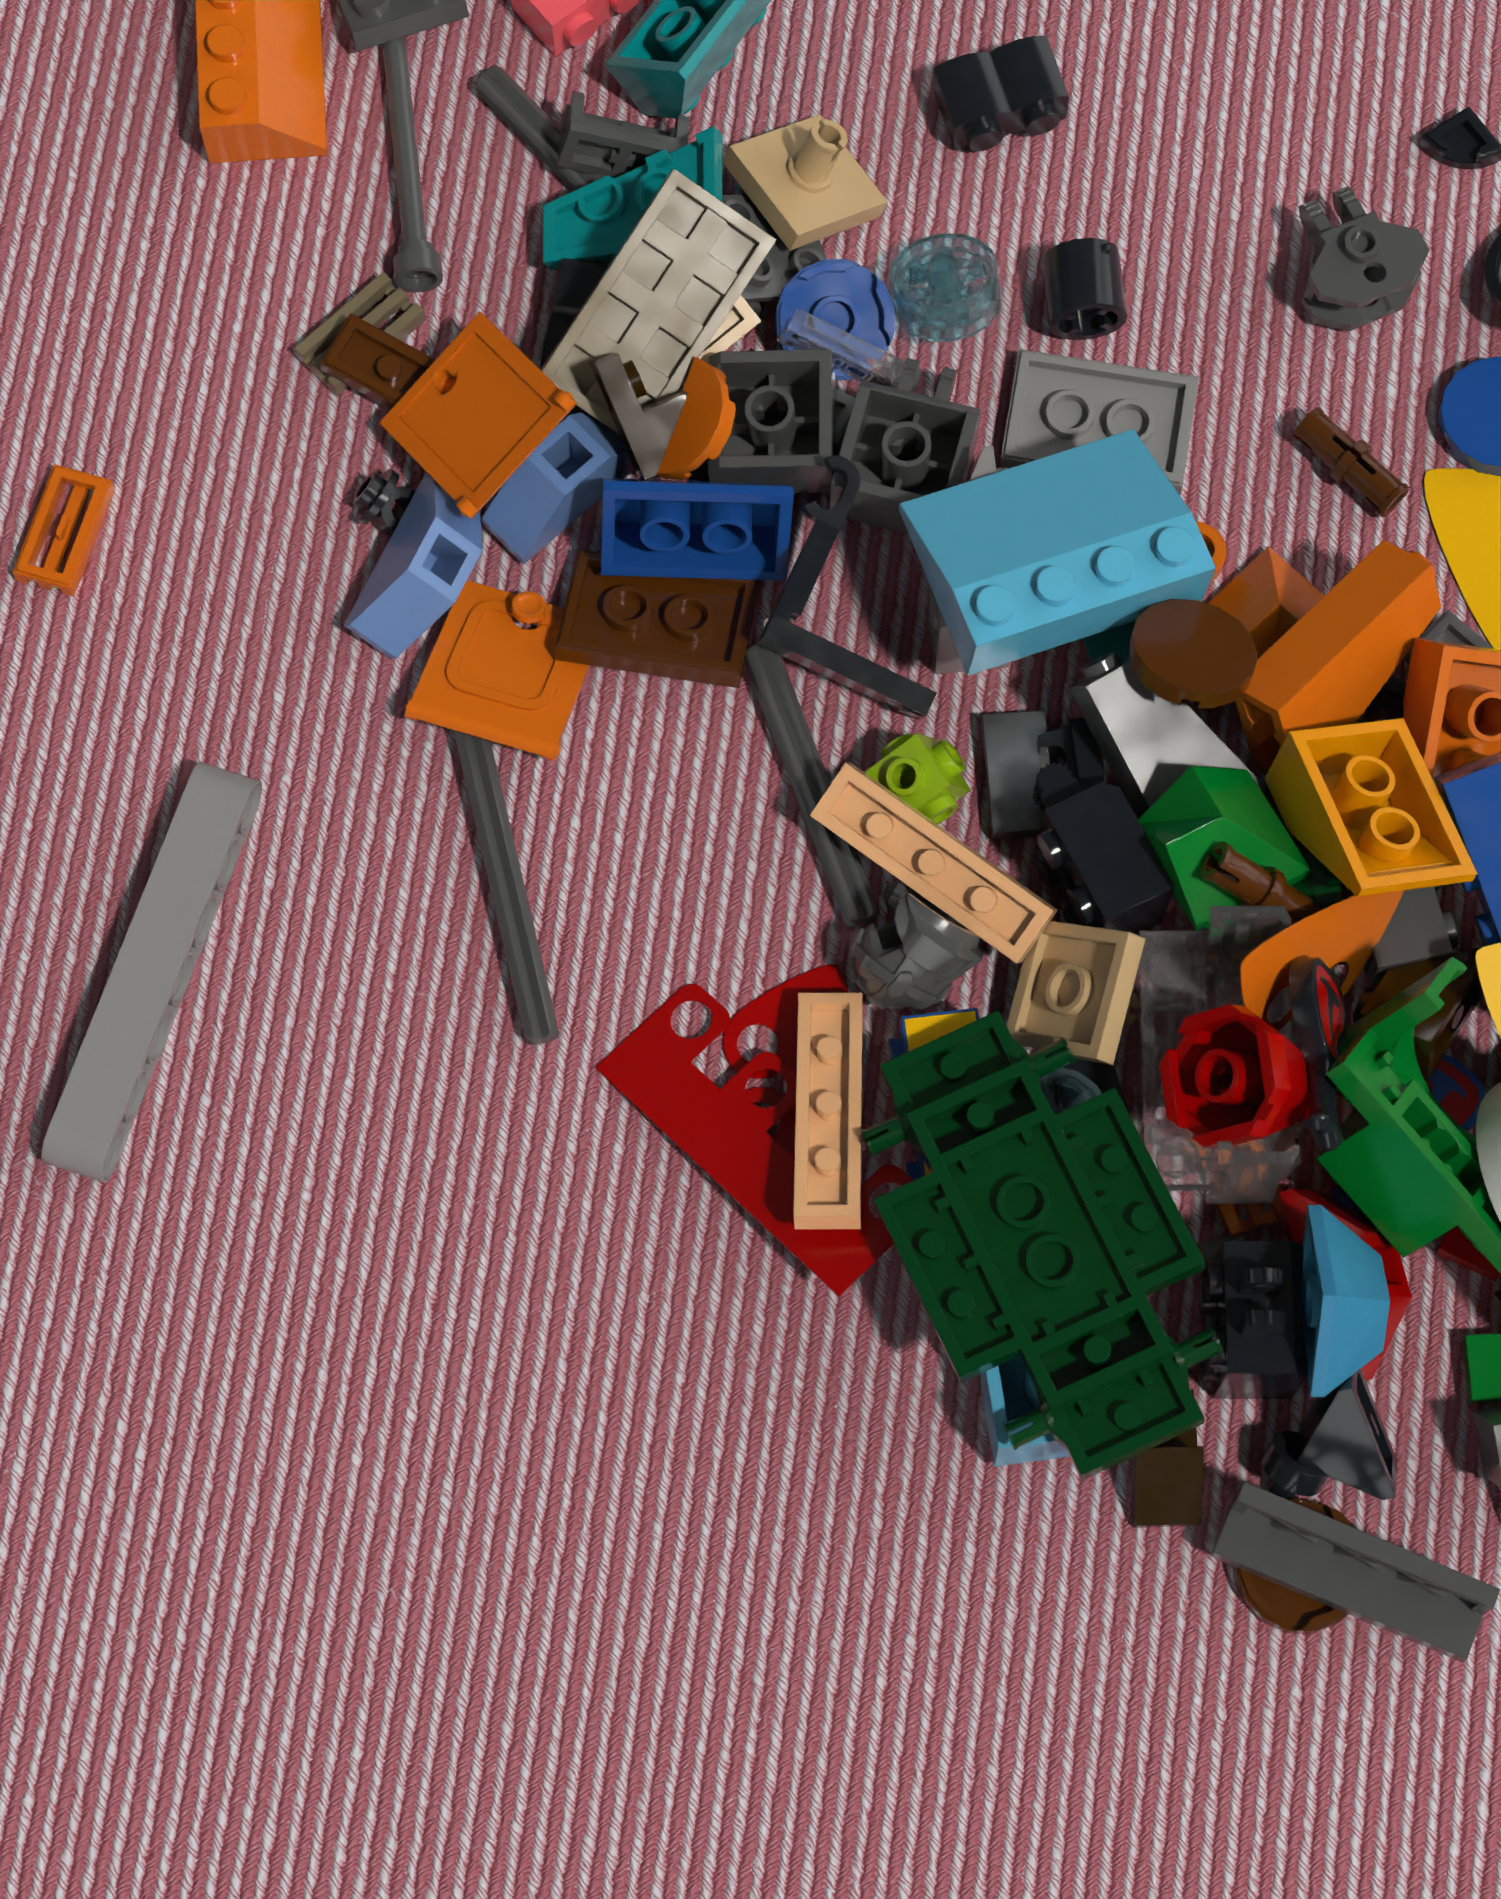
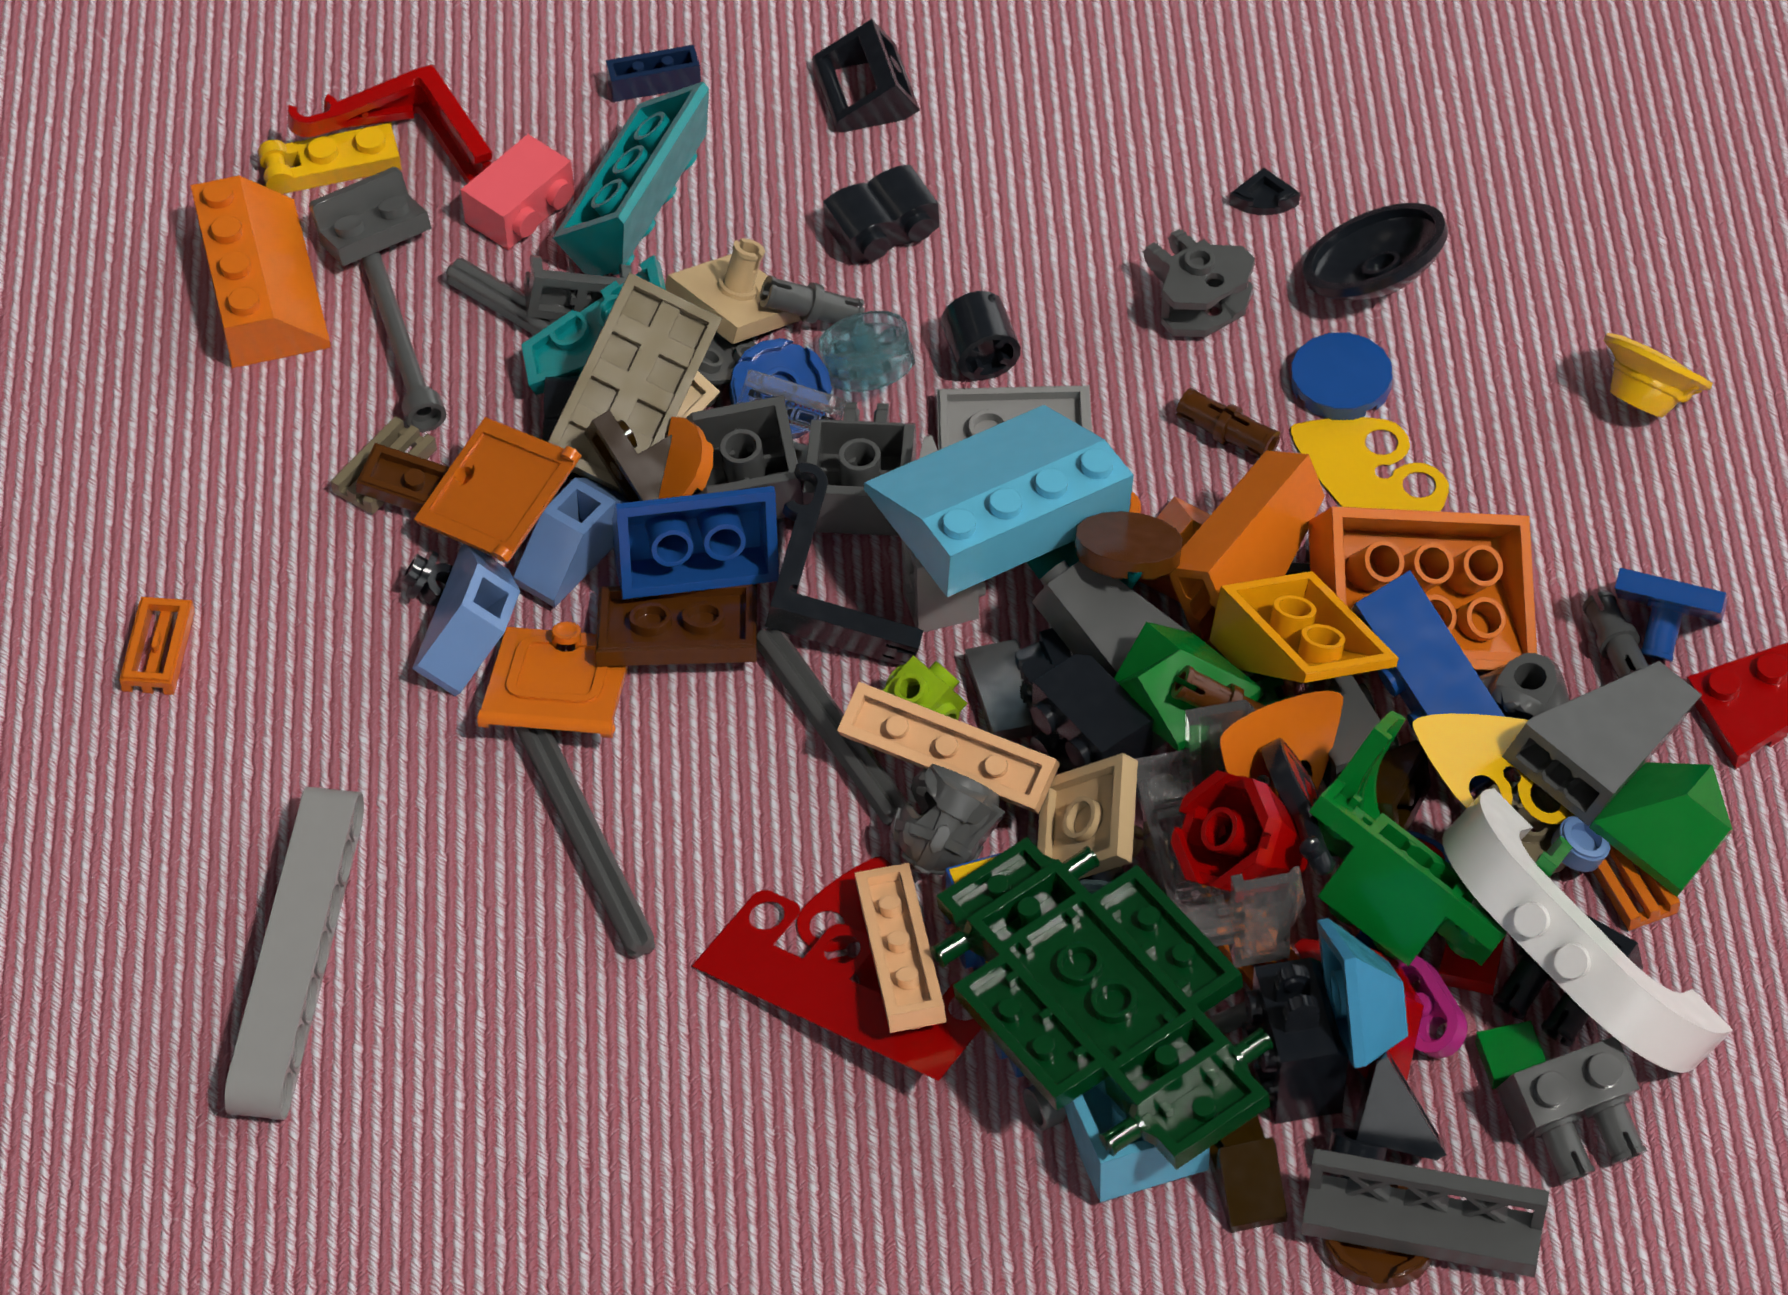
camera: 10 degrees left, 20 degrees down
(891, 207) = (808, 301): none -> dark grey pin
(1428, 1295) = (1438, 1009): none -> dark pink plate

